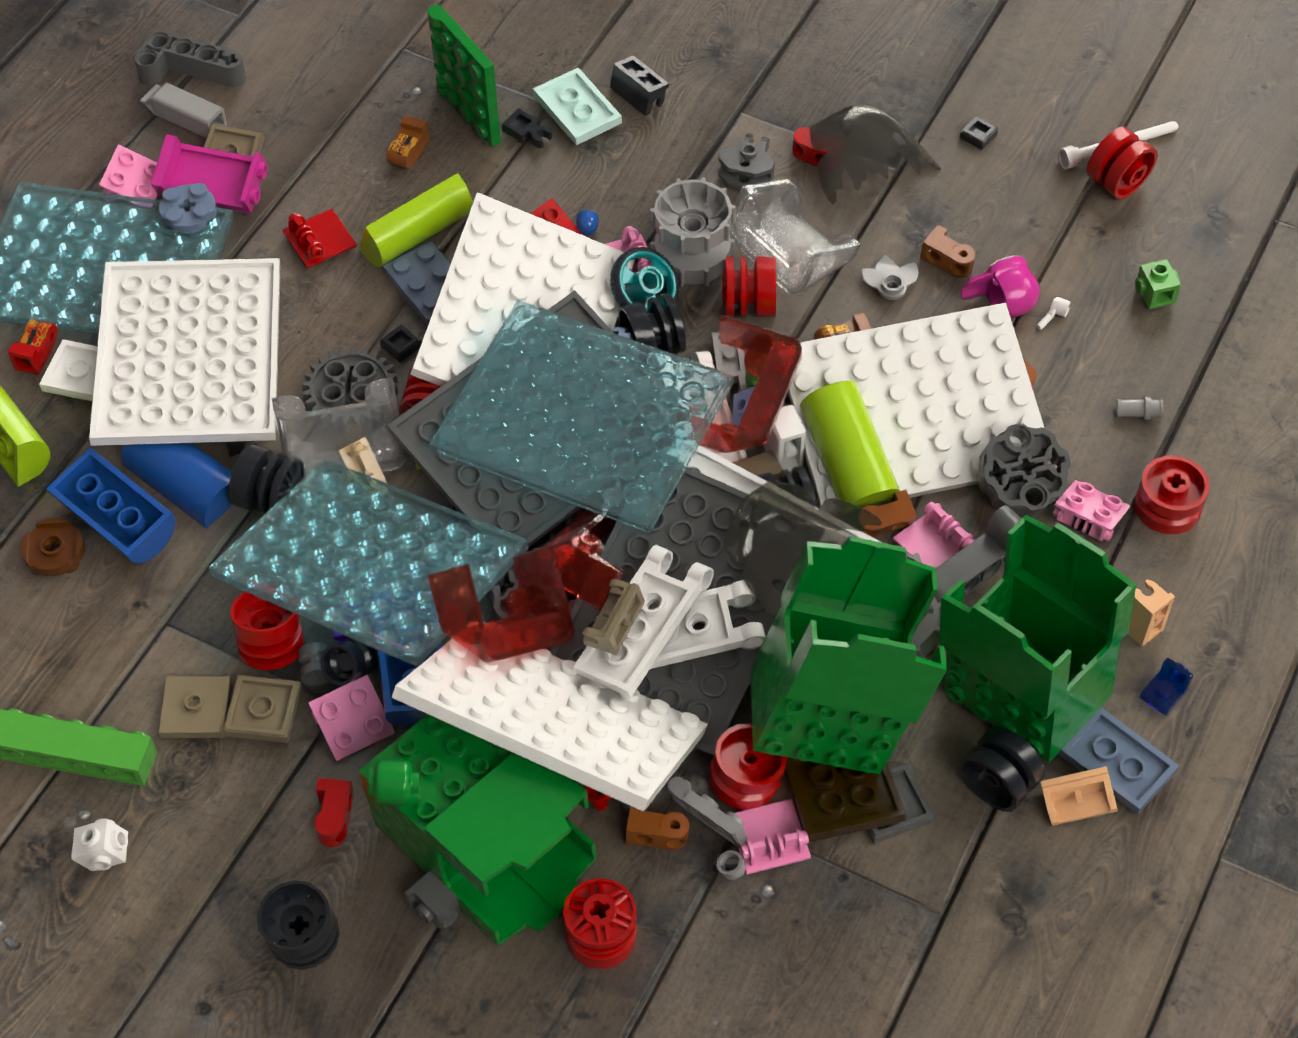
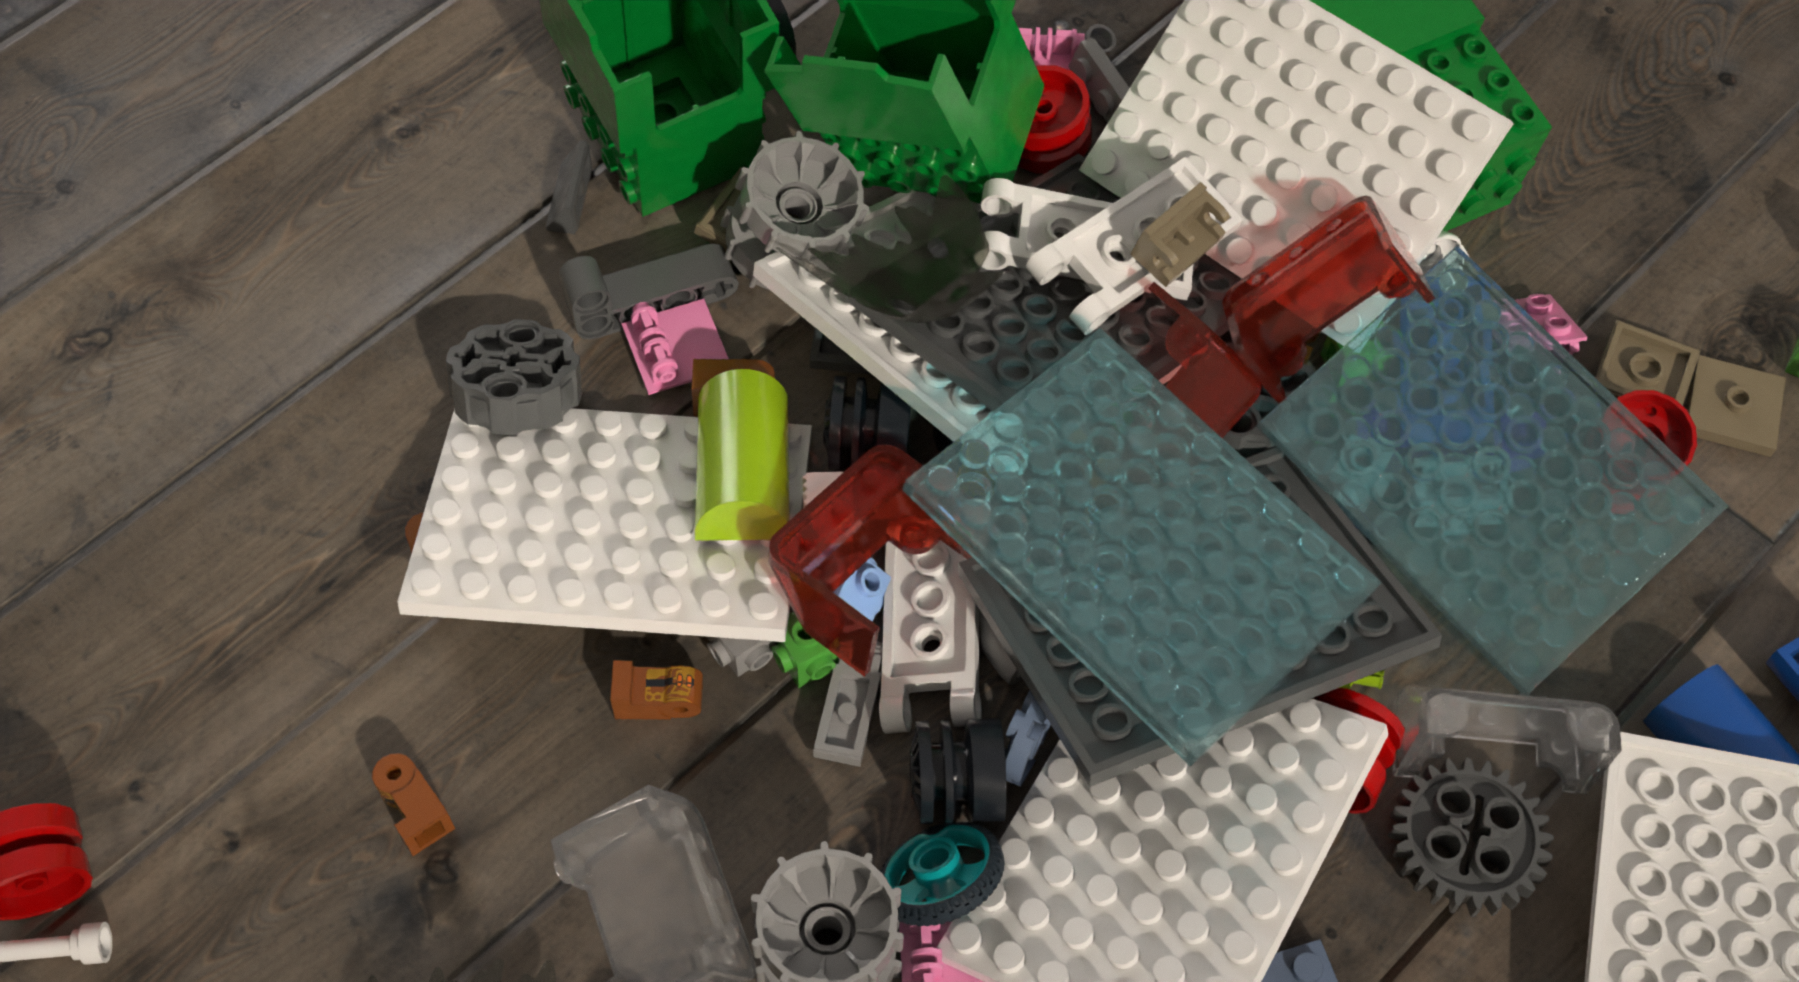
camera: 165 degrees left, 5 degrees up
(262, 478) = (1624, 673): black wheel -> none
(284, 915) = (1620, 90): black wheel -> none
(335, 815) = (1557, 233): red leg -> none
(360, 458) = (1467, 658): tan hinge -> none
(393, 782) = (1519, 56): green head -> none
(400, 343) = (1371, 916): black tile -> none
(750, 286) = (769, 803): red wheel -> none
(890, 278) = (523, 799): light grey plate -> none
(1006, 282) = (357, 695): dark pink piece -> none
(1059, 306) = (297, 654): white hand -> none
(1093, 506) = (441, 320): bright pink hinge -> none
(1139, 408) = (280, 445): light grey pin -> none
(1149, 613) = (470, 148): light nougat hinge -> none
(1158, 284) = (126, 627): bright green brick -> none
(1167, 686) = (494, 93): clear blue bracket -> none
(1171, 494) = (334, 299): red wheel -> none

